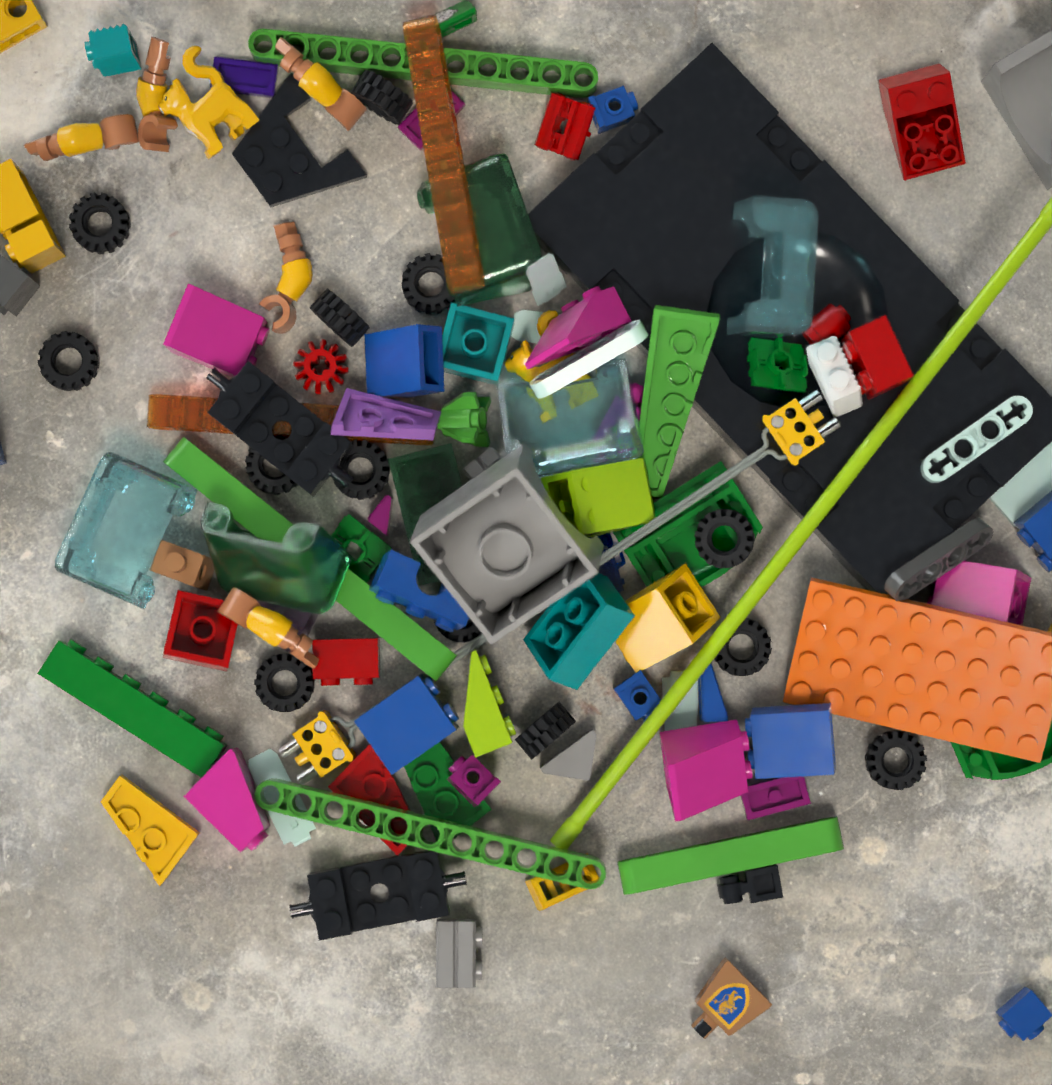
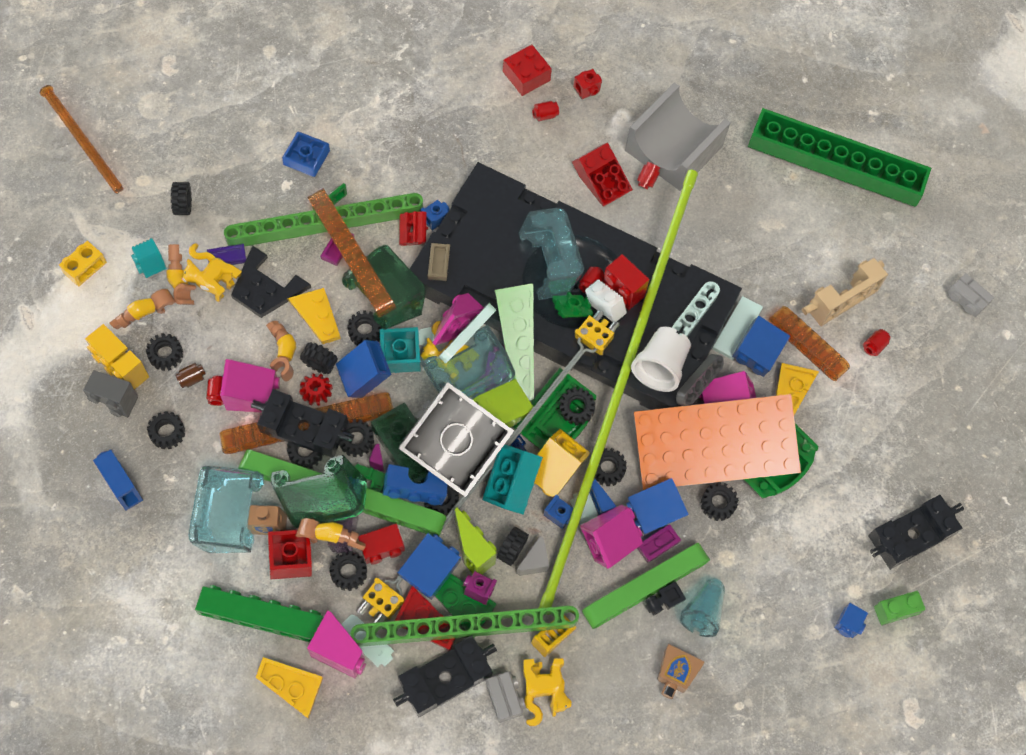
camera: 20 degrees left, 20 degrees down
(130, 278) = (190, 375): none -> reddish brown brick
(161, 317) = (214, 391): none -> red brick
(321, 85) = (271, 243): piece -> none
(363, 231) = (317, 313): none -> yellow wing
(382, 97) = (307, 240): black tyre -> none
(382, 417) = (359, 399): medium lavender wing -> none
(466, 419) = (407, 391): bright green brick -> none
(520, 955) = (544, 685): none -> yellow animal
(545, 279) = (428, 301): light aqua piece -> none
(584, 214) = (439, 261): none -> dark tan tile
(807, 922) = (705, 609): none -> clear light blue cone
(886, 515) = (662, 360): none -> white piece
(1000, 150) = (648, 175): none -> red brick

